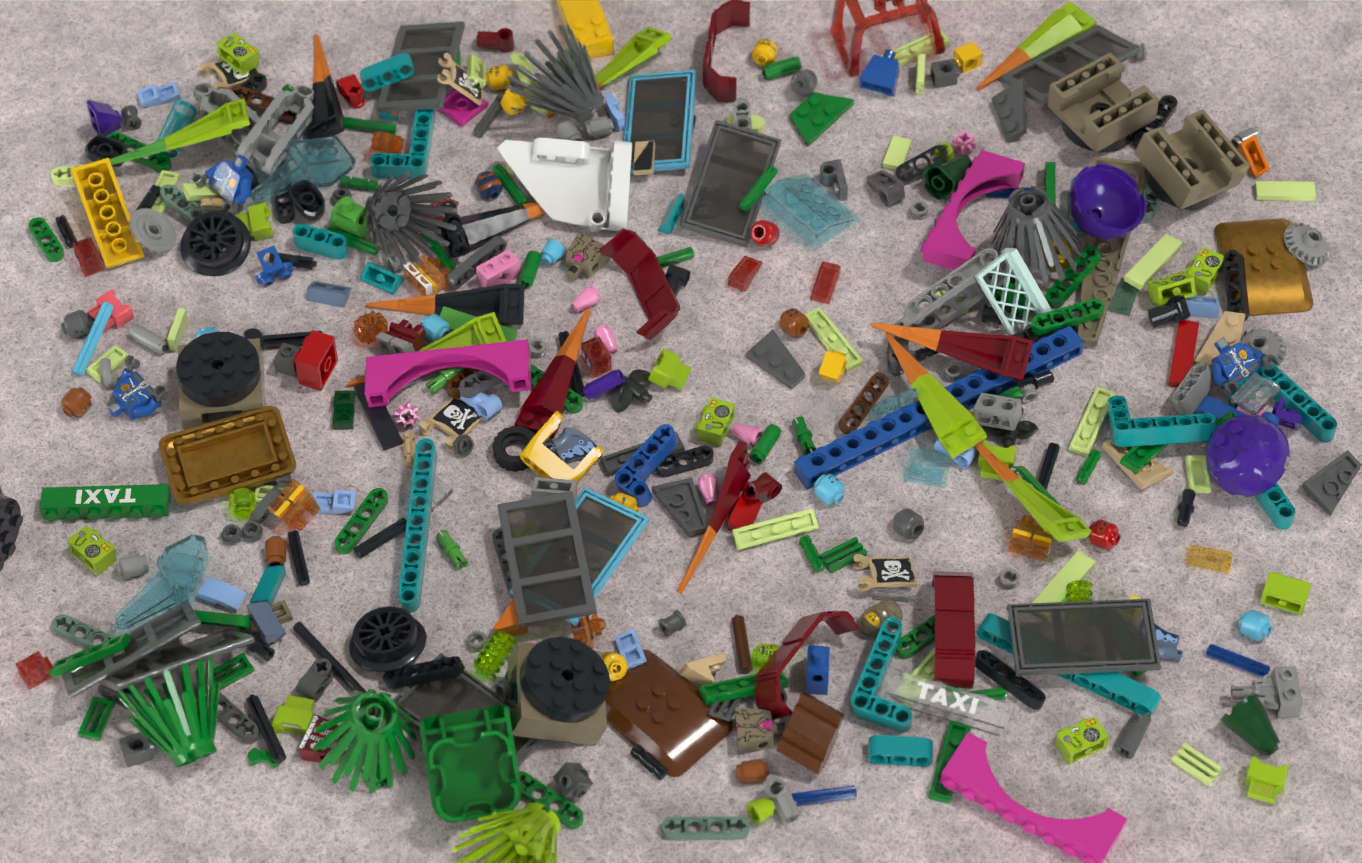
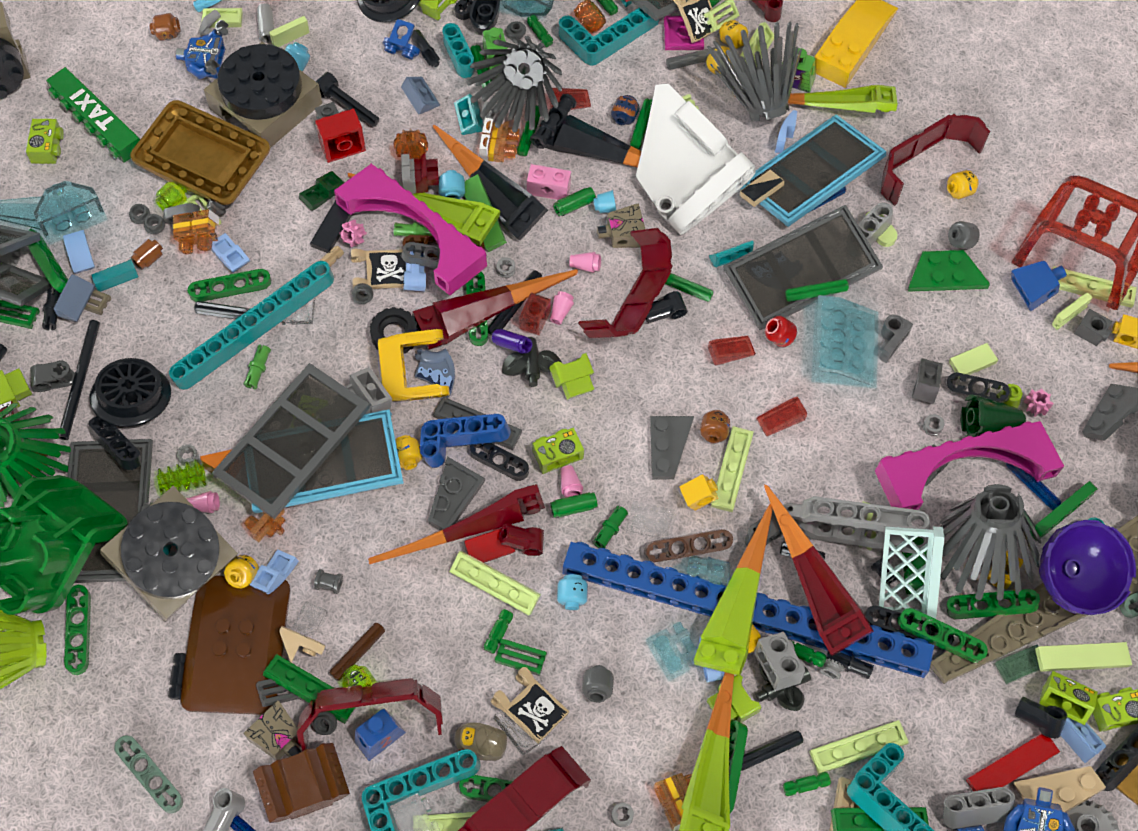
camera: 45 degrees right, 10 degrees up
(132, 566) = (51, 174): light grey brick -> none
(298, 558) = (157, 273): black axle -> none
(467, 269) = (522, 161): dark grey beam -> none
(567, 131) = (731, 121): light grey brick -> none
(573, 780) = (105, 634): dark grey brick -> none
(599, 127) = (760, 134): light grey brick -> none
(708, 488) = (487, 496): bright pink cone -> none
(752, 771) = (234, 765): dark orange brick -> none
(760, 809) = (199, 804): lime hat -> none
(781, 68) = (961, 208): green piece -> none
(955, 366) = (793, 596): light grey bush -> none

